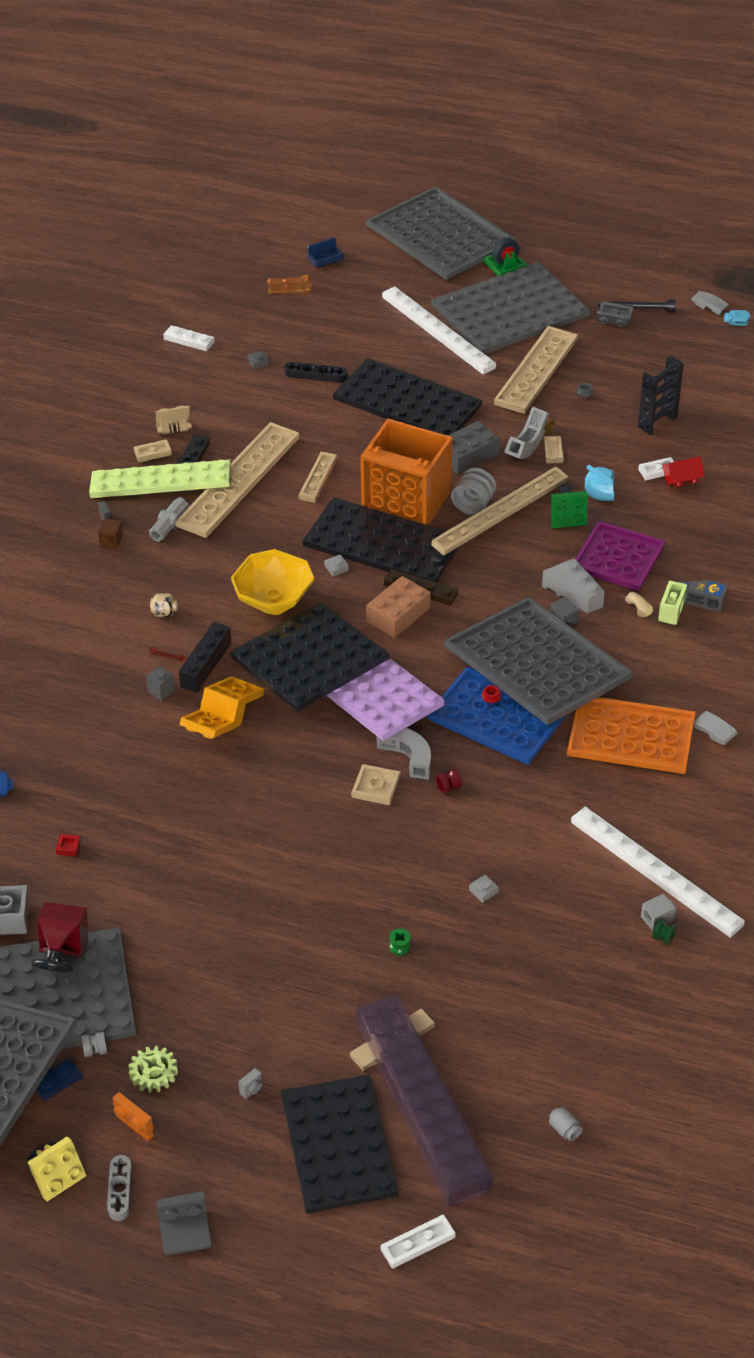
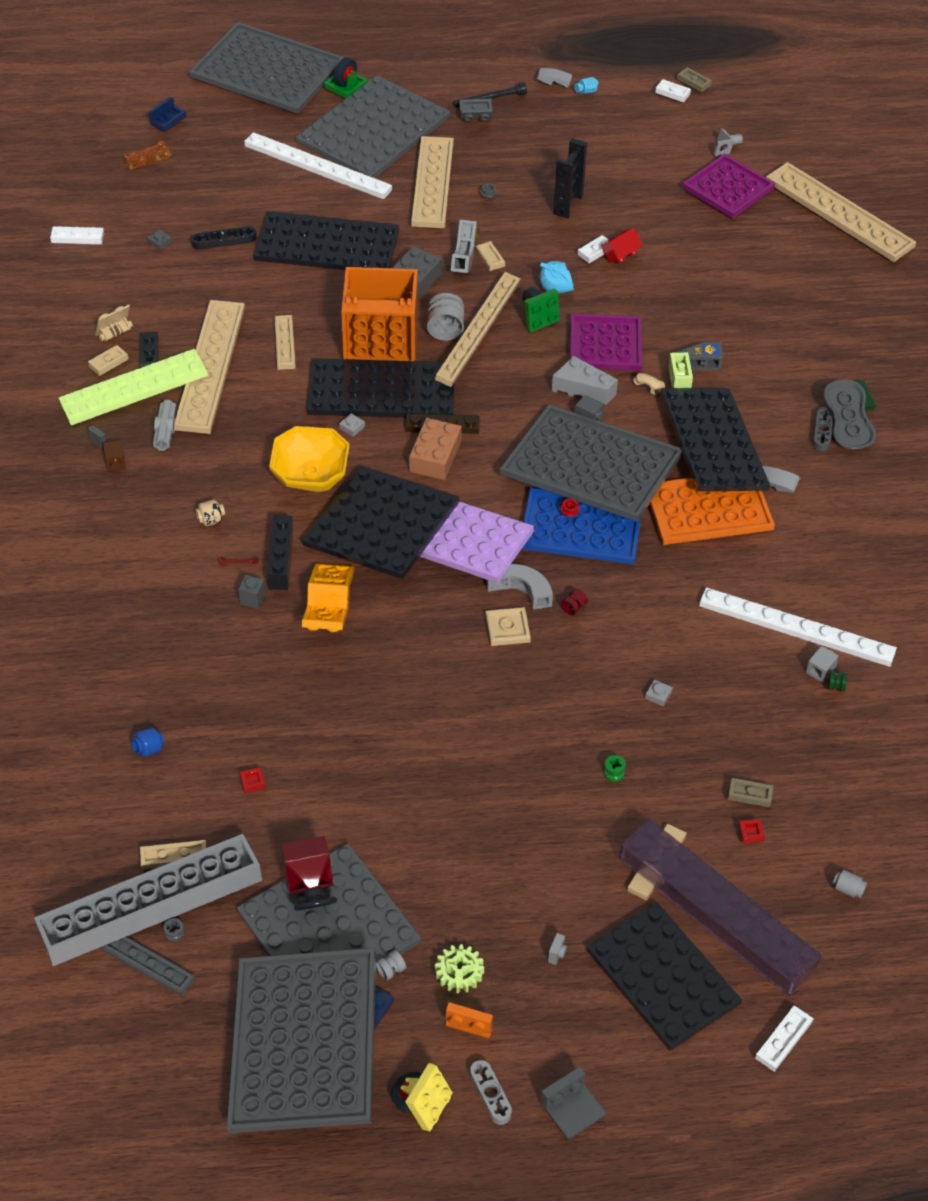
camera: 25 degrees left, 5 degrees up
(497, 1042) = (751, 831): none -> red plate
(517, 1007) = (750, 792): none -> dark tan plate
(669, 673) = (714, 439): none -> black plate

